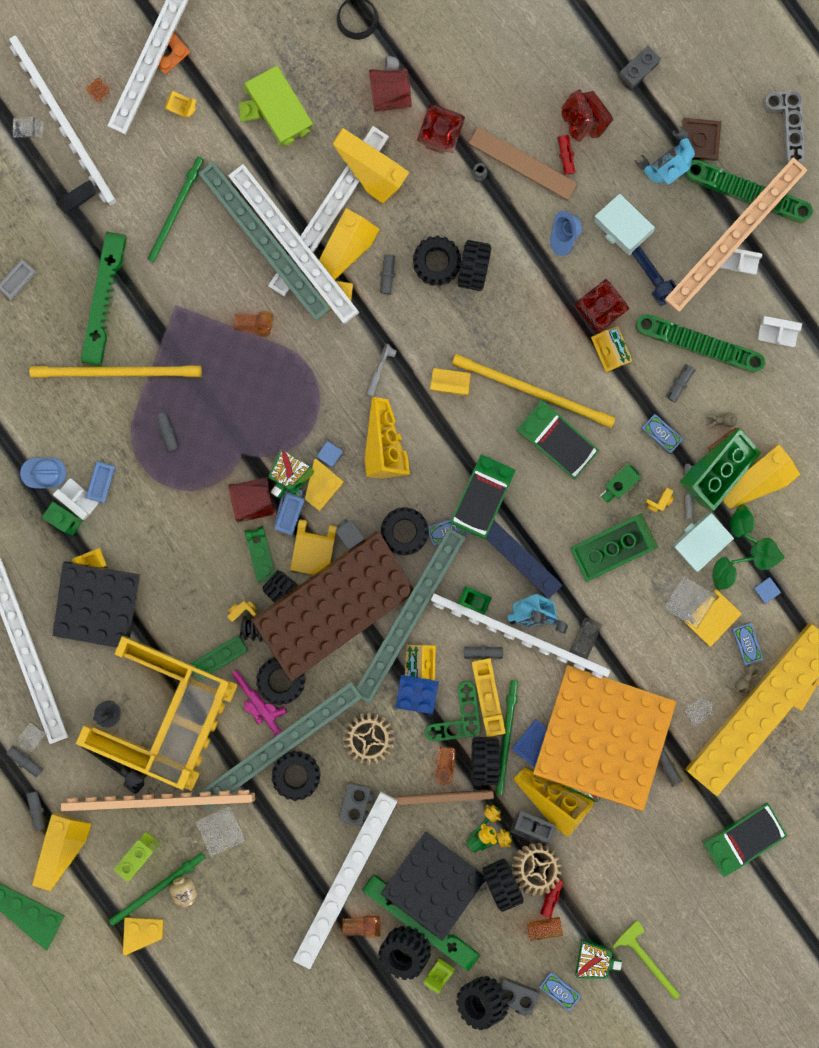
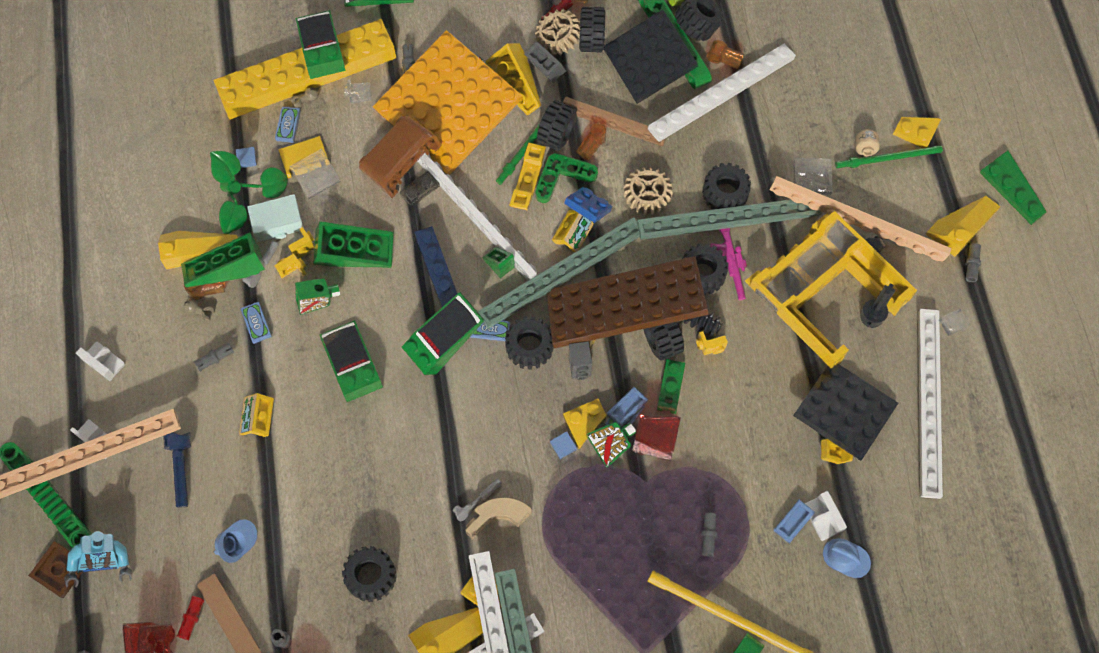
camera: 155 degrees left, 20 degrees down
(24, 761) = (968, 307): dark grey pin -> none
(62, 518) = (849, 504): green torso -> none
(137, 856) = (893, 177): lime panel -> none
(221, 655) = (749, 317): green tile -> none
(259, 324) = (570, 597): clear orange piece -> none
(311, 550) = (621, 367): yellow flag -> none
(351, 802) = (687, 147): dark grey brick -> none
(355, 370) = (497, 509): none -> tan arch
(383, 448) = (512, 421): yellow wedge -> none
(387, 274) = (423, 586): dark grey pin -> none
(450, 382) = (418, 456): yellow panel -> none
(474, 265) = (334, 548): black tyre -> none
(483, 652) = (513, 215): dark grey pin -> none
(485, 838) = (585, 70): yellow plant -> none
(530, 742) = (510, 127): blue plate -> none
(536, 611) = (449, 220): medium azure torso -> none
(597, 416) = (393, 465): yellow piece -> none
(601, 306) = (241, 453): clear red piece -> none
(620, 658) = (397, 153): none -> dark orange windscreen
(623, 224) = (177, 521): light aqua container -> none
(661, 522) = (303, 245): none -> yellow bracket
(700, 343) = (175, 382): green gear -> none
(758, 735) = (320, 44): none -> slope

